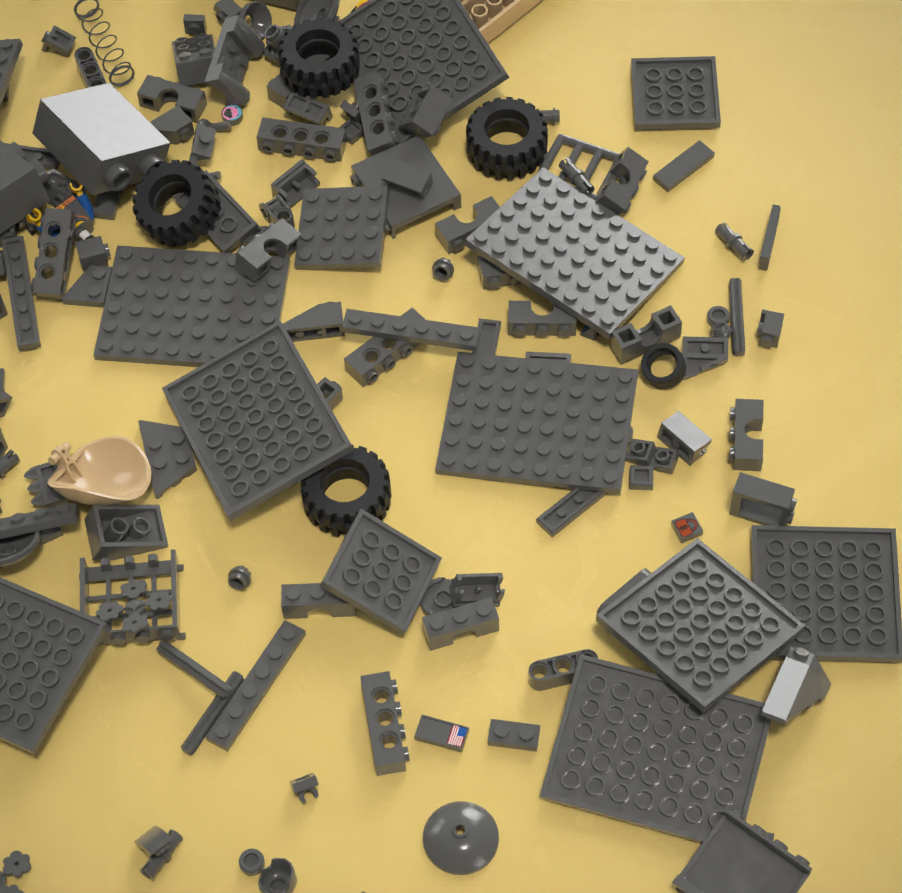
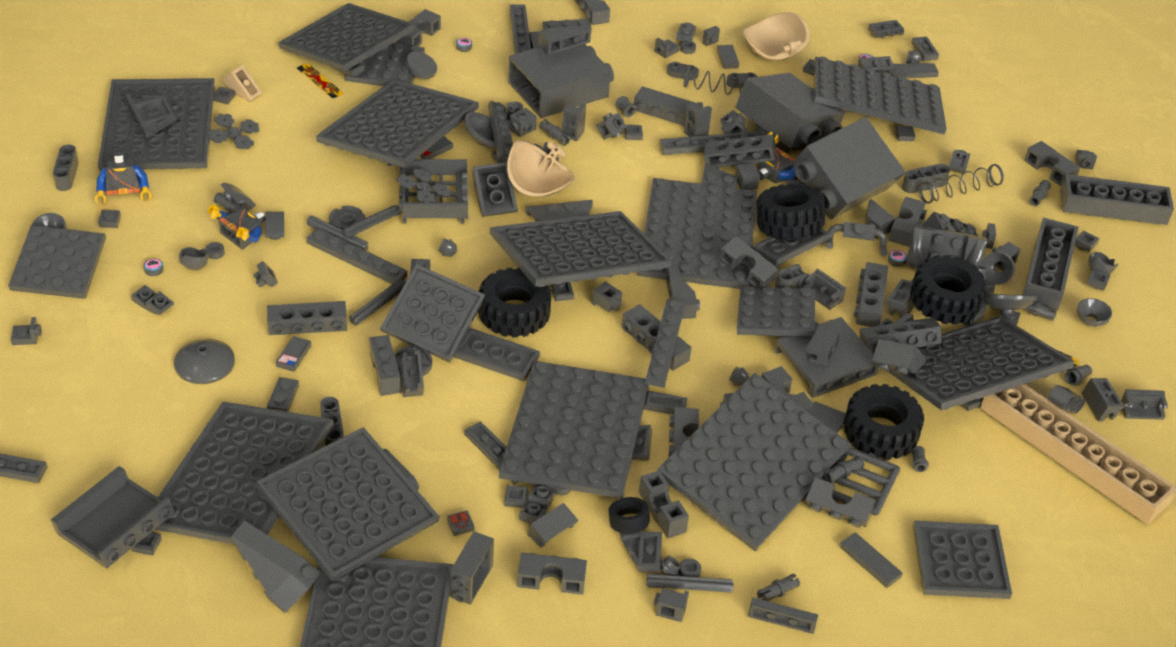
camera: 85 degrees right, 15 degrees down
(181, 705) = (346, 216): none -> dark grey tile
(203, 788) = (274, 224): none -> dark grey slope
(212, 829) = (240, 226): none -> torso
(341, 647) = (377, 302): none -> dark grey axle
(426, 505) = (497, 354): none -> dark grey tile
(497, 189) = (829, 416): none -> dark grey piece

